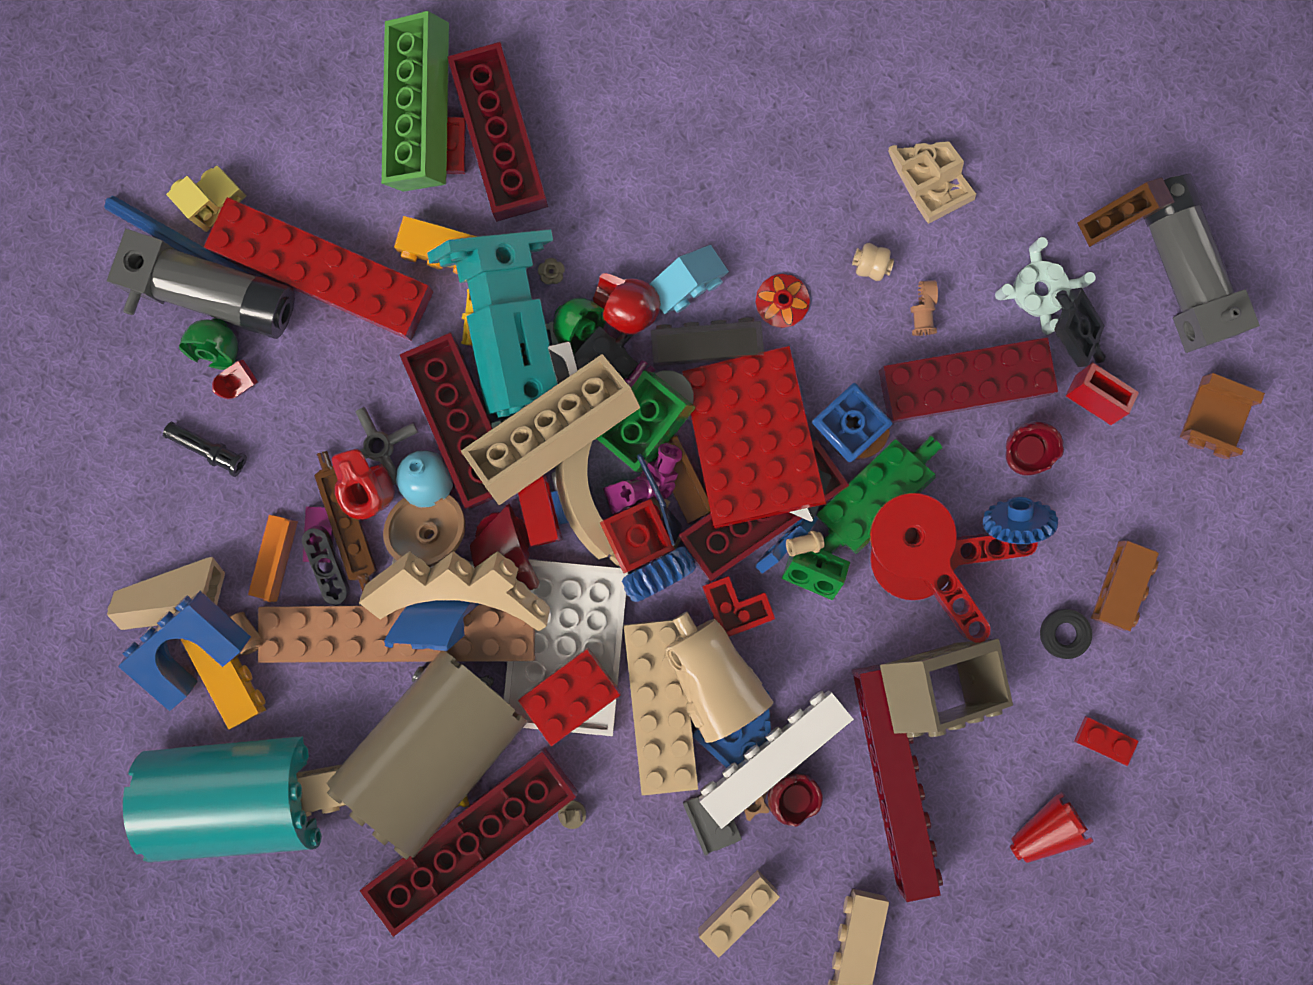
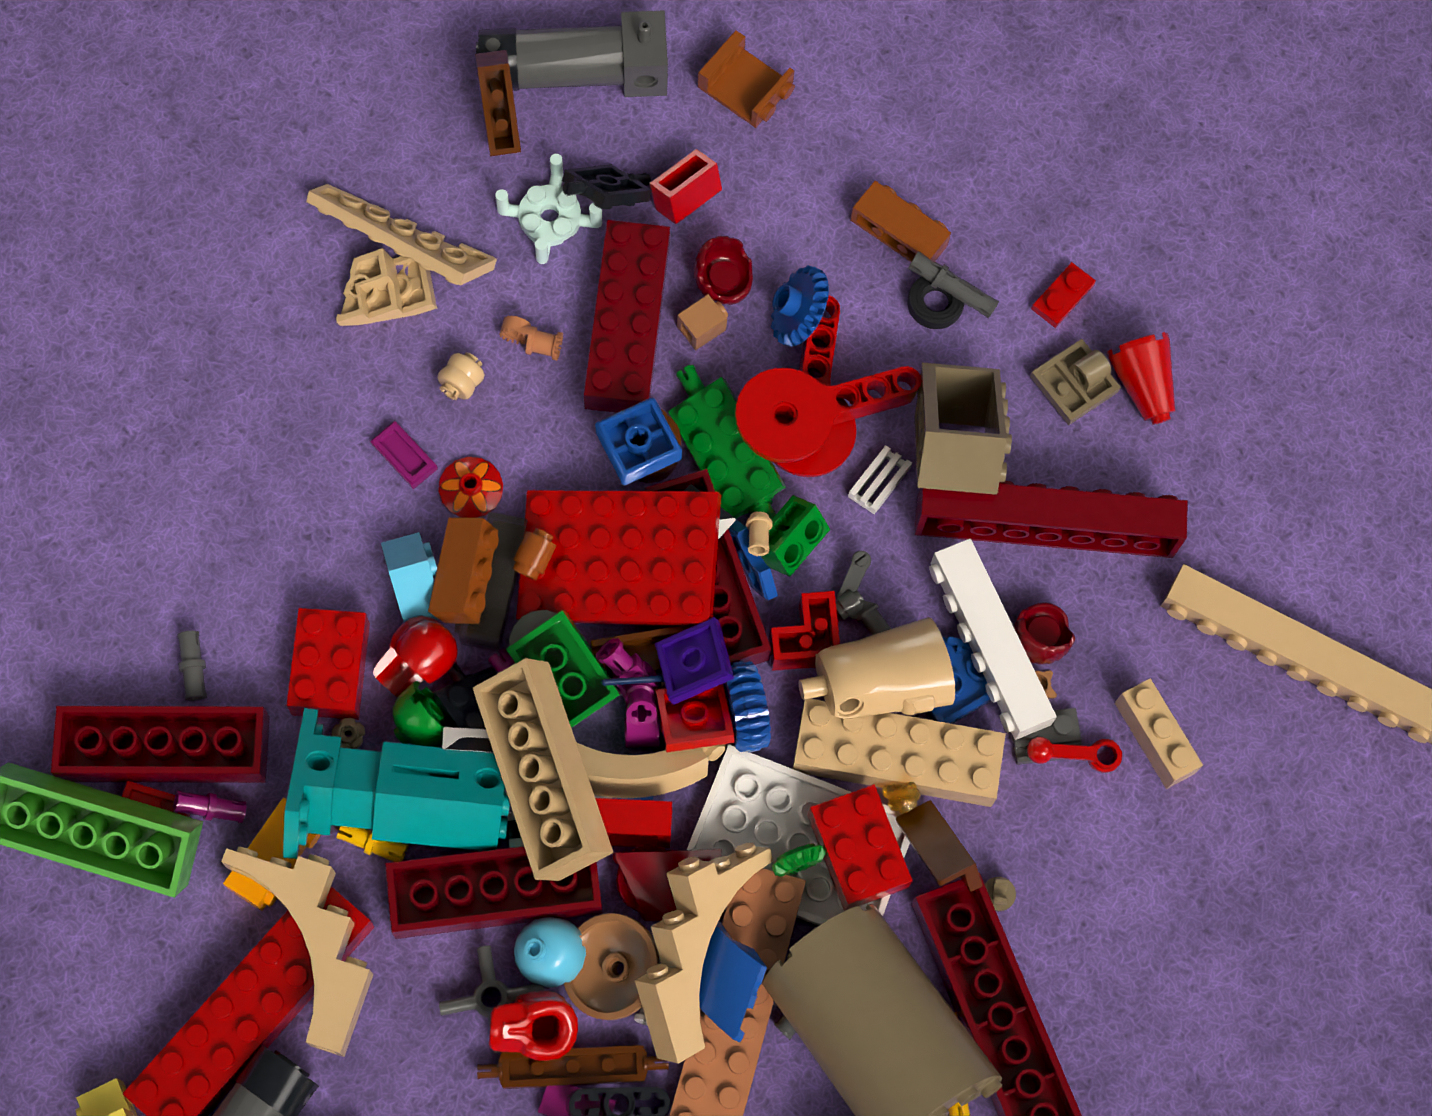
camera: 80 degrees left, 15 degrees down
(379, 304) = (338, 984): none -> tan arch
(461, 185) = (209, 806): none -> magenta pin
(545, 651) = (798, 859): none -> green gear
(569, 134) = (192, 665): none -> dark grey pin
(587, 758) = (938, 846): none -> reddish brown panel
(600, 237) = (328, 663): none -> red brick
(622, 718) = (901, 796): none -> clear yellow plate
(680, 522) = (694, 660): none -> dark purple plate
(696, 821) = (1042, 750): none -> red piece
(702, 316) = (463, 570): none -> dark orange brick
(733, 367) = (534, 554): none -> dark orange brick
(774, 636) = (851, 603): none -> dark grey pin
(793, 238) = (404, 455): none -> magenta tile
(912, 637) = (895, 459): none -> white tile
(975, 198) = (427, 249): none -> tan wing
(983, 444) = (702, 321): none -> medium nougat brick
(1029, 771) = (1076, 381): none -> dark tan plate
(1083, 641) = (952, 284): none -> dark grey pin

